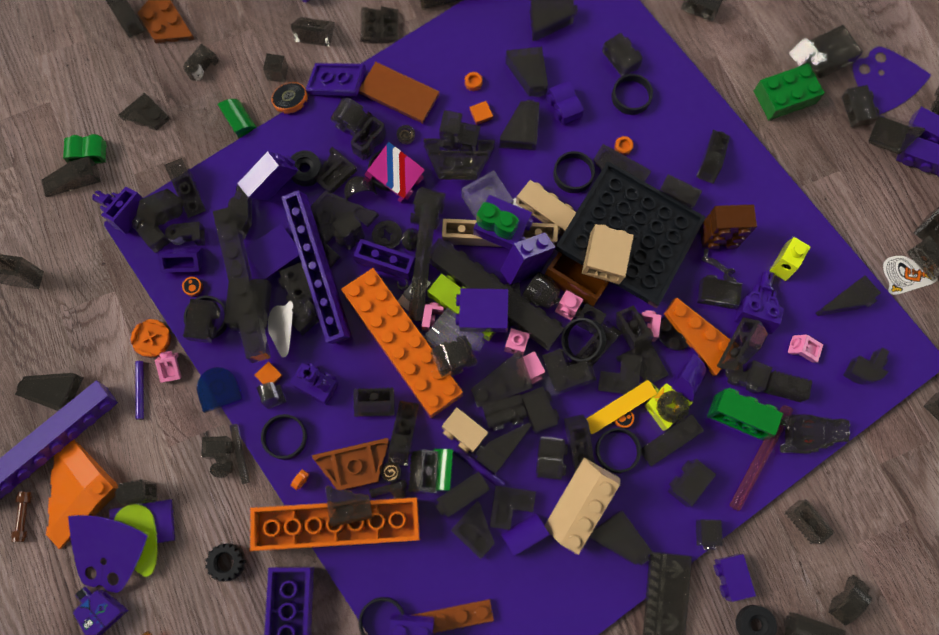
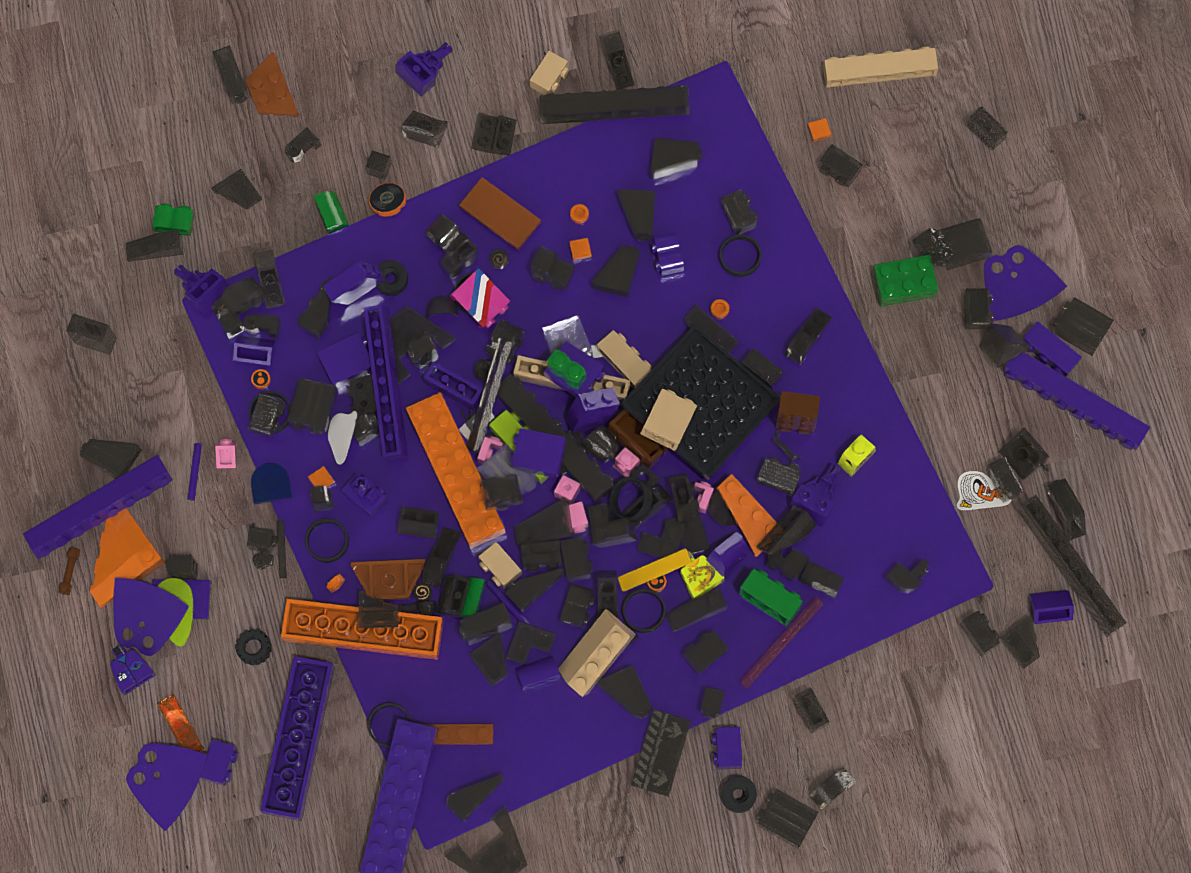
camera: 15 degrees right, 0 degrees up
(150, 338) = (212, 423): orange tile -> none
(241, 285) = (311, 387): clear smoke brick -> none
(335, 171) = (421, 286): clear smoke wing -> none
(336, 79) = (438, 188): dark purple tile -> none
(391, 227) = (466, 353): clear smoke gear -> none
(458, 164) = (546, 301): clear smoke wing -> none
(574, 154) = (667, 310): black tyre -> none
(666, 412) = (708, 584): clear smoke gear -> none
(806, 347) = (852, 545): bright pink bracket -> none
(810, 433) = (833, 627): clear smoke animal -> none
(854, 297) = (911, 505): clear smoke slope -> none

